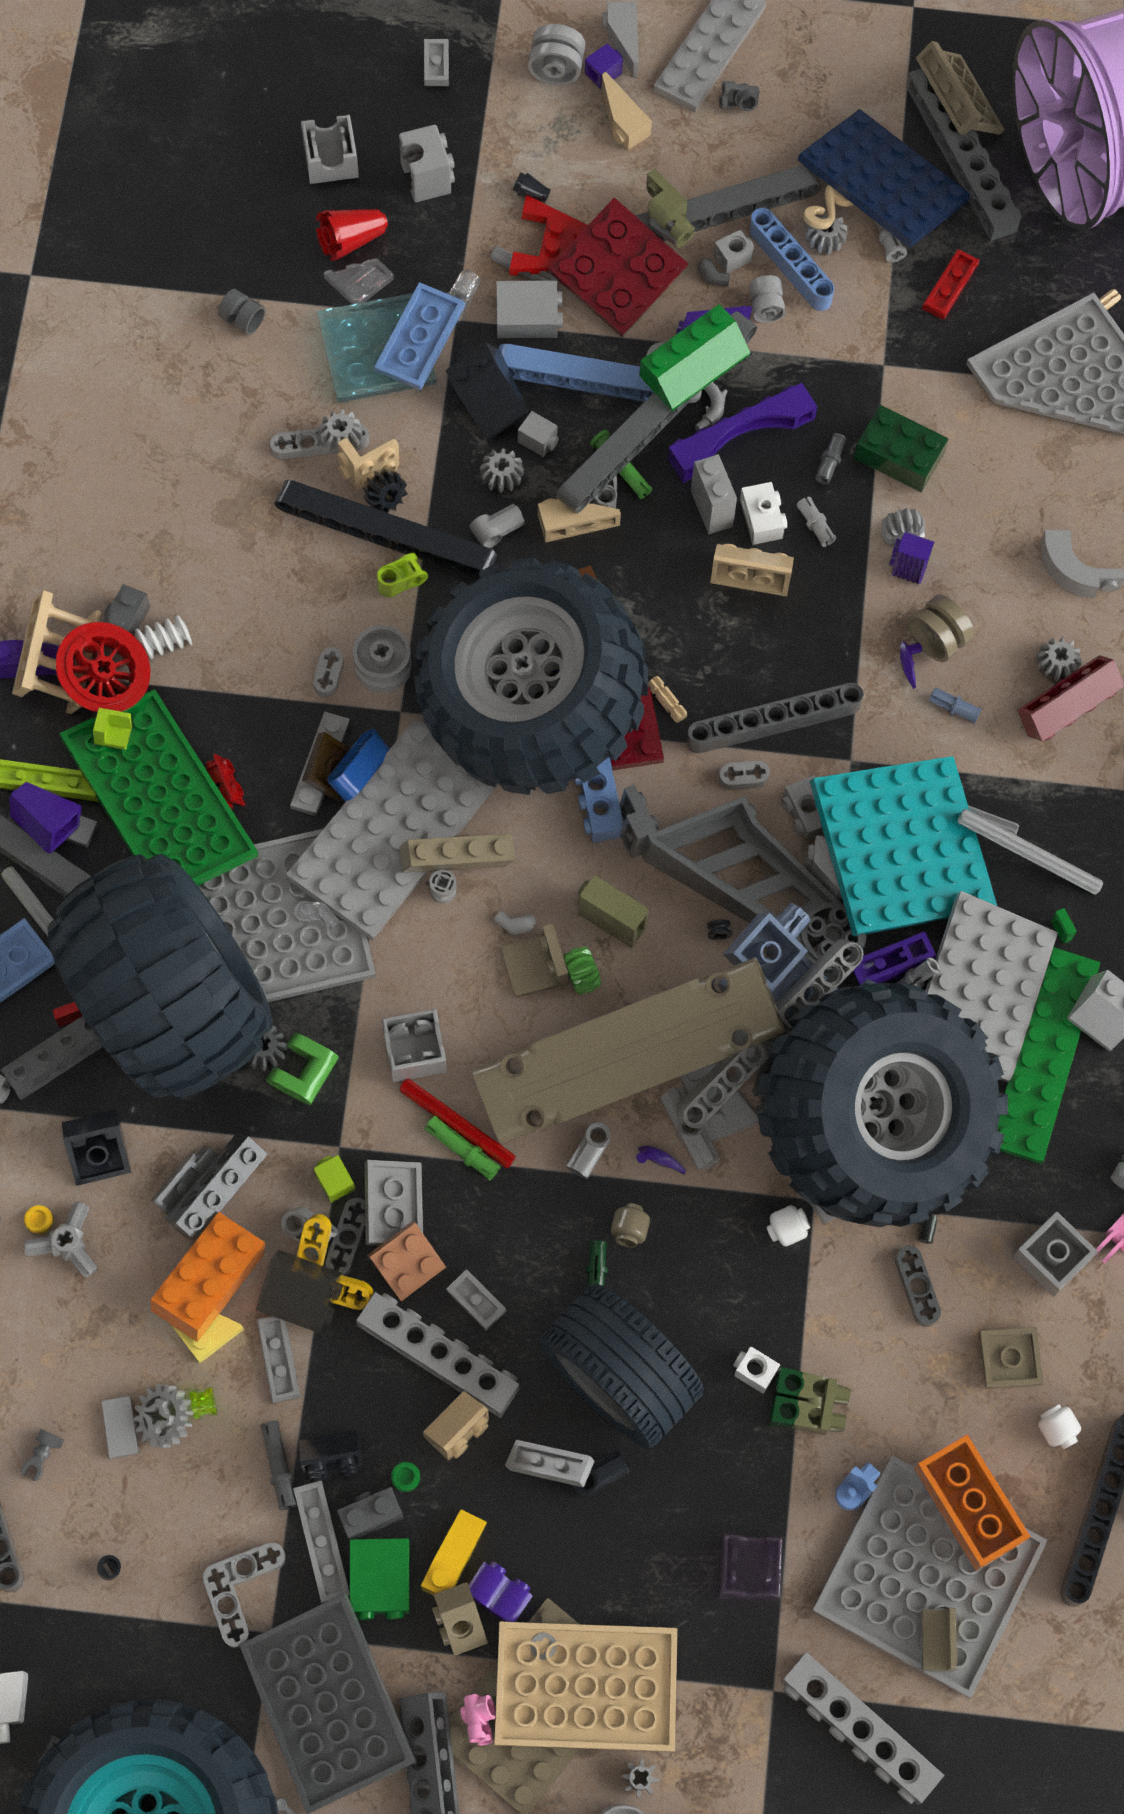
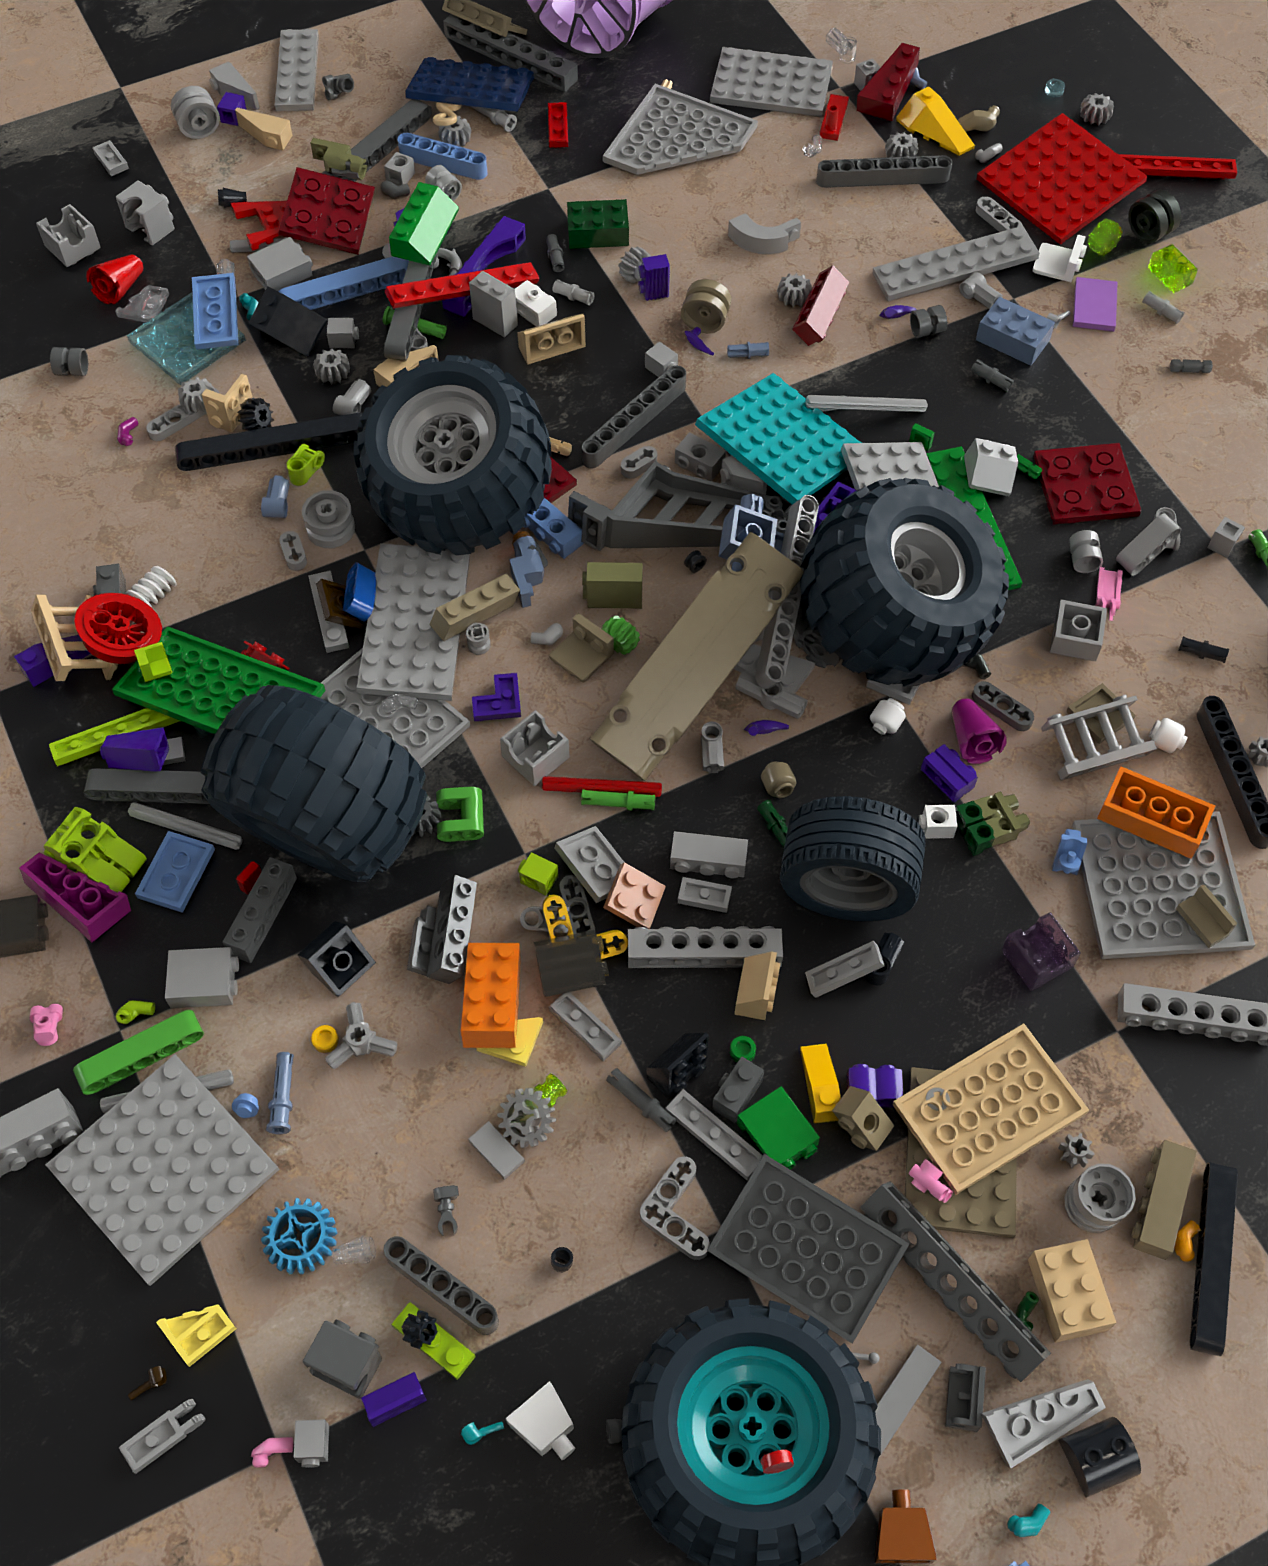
camera: 30 degrees left, 10 degrees down
(244, 433) = (124, 429): none -> magenta arm
(344, 606) = (275, 502): none -> sand blue piece
(420, 974) = (501, 705): none -> dark purple plate
(468, 341) = (249, 304): none -> teal arm
(507, 1262) = (708, 854): none -> light grey brick
(546, 833) = (527, 566): none -> sand blue plate
(688, 450) = (455, 285): none -> red plate
(806, 1325) = (949, 772): none -> dark purple brick
(850, 664) = (660, 359): none -> light grey brick
(863, 1298) = (976, 732): none -> magenta cone
(963, 1404) = (1095, 760): none -> light grey fence

